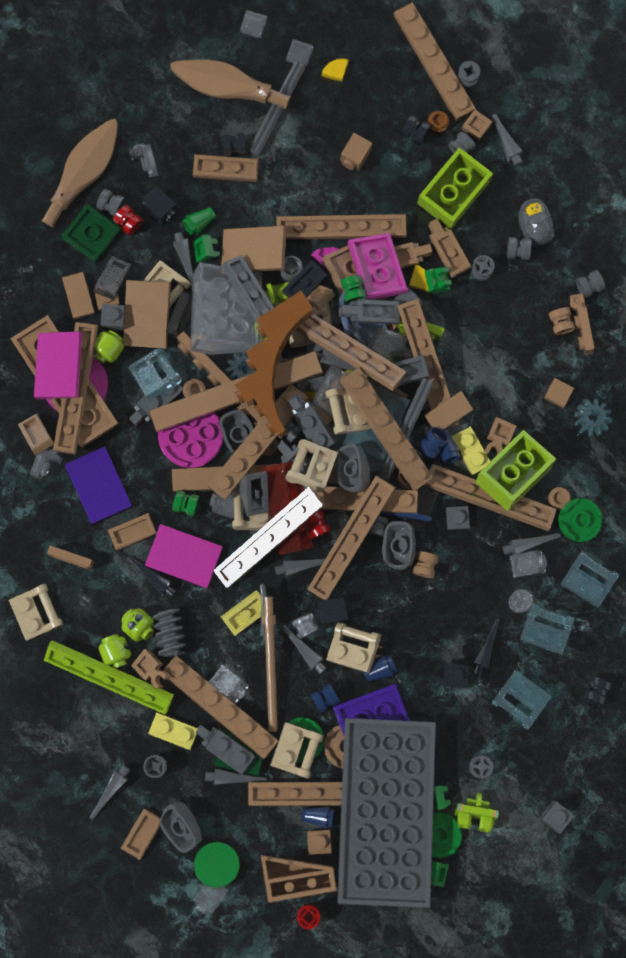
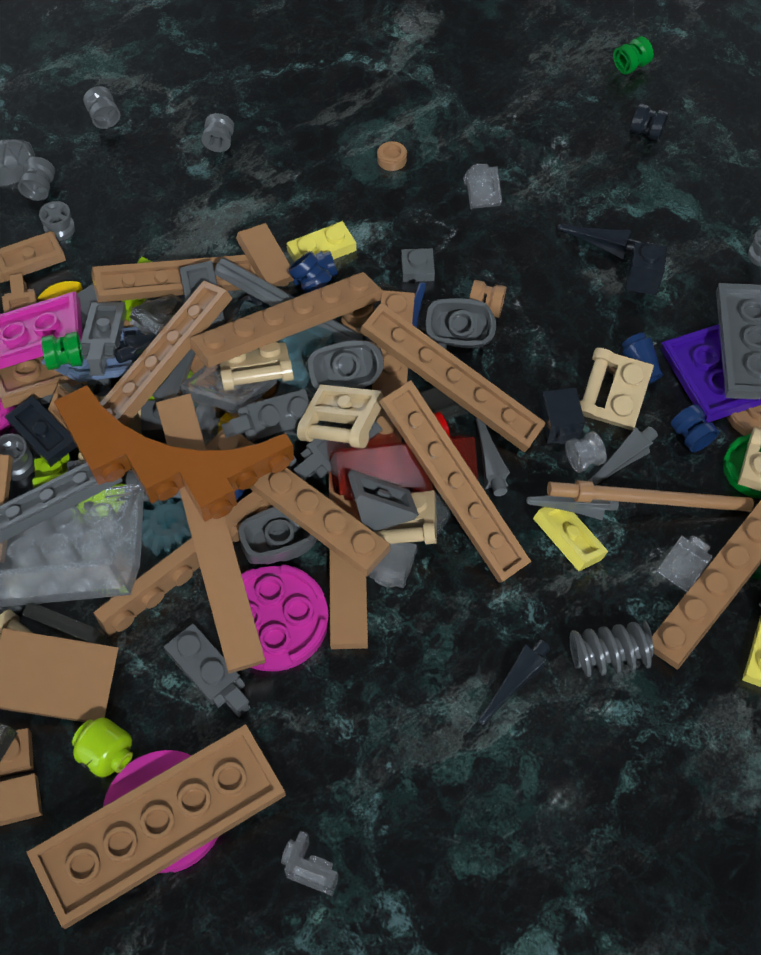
camera: 85 degrees left, 20 degrees down
(29, 616) = (594, 900): tan plate -> none
(36, 434) = (254, 879): medium nougat tile -> none
(58, 365) = (127, 825): dark pink tile -> none
(70, 557) = (486, 818): medium nougat tile -> none
(72, 408) = (174, 796): medium nougat tile -> none
(98, 485) = (353, 771): dark purple tile -> none
(108, 677) = (694, 758): lime tile -> none
(113, 318) = (50, 735): dark grey brick -> none
(114, 651) = (648, 742): lime head -> none
(132, 532) = (437, 714): medium nougat tile -> none
(138, 624) = (601, 700): lime head -> none
(148, 376) = (168, 673): clear light blue plate -> none
(149, 667) = (670, 684): medium nougat plate -> none
(181, 500) = (390, 621): green wheel -> none
(183, 556) = (478, 631): dark pink tile -> none
(193, 387) = (194, 607): medium nougat tile -> none
(437, 279) = (65, 271): green tile -> none
(467, 490) = (393, 217): medium nougat plate -> none
(500, 434) = (302, 208): medium nougat plate -> none
(515, 470) = (356, 182): lime brick -> none
(520, 545) = (457, 193): dark grey piece -> none
(523, 598) = (535, 195): clear wheel -> none
(526, 693) = (660, 194): clear light blue plate -> none
(543, 635) = (579, 175): clear light blue plate -> none
(558, 393) = (247, 150): medium nougat tile -> none
(562, 321) = (148, 137): medium nougat wheel -> none
(570, 370) = (217, 132): none -> dark grey wheel
(580, 519) = (422, 132): green tile -> none
(582, 321) = (156, 116): medium nougat hinge -> none
(584, 584) = (507, 135): clear light blue plate -> none
(600, 423) = (285, 112): clear light blue gear -> none

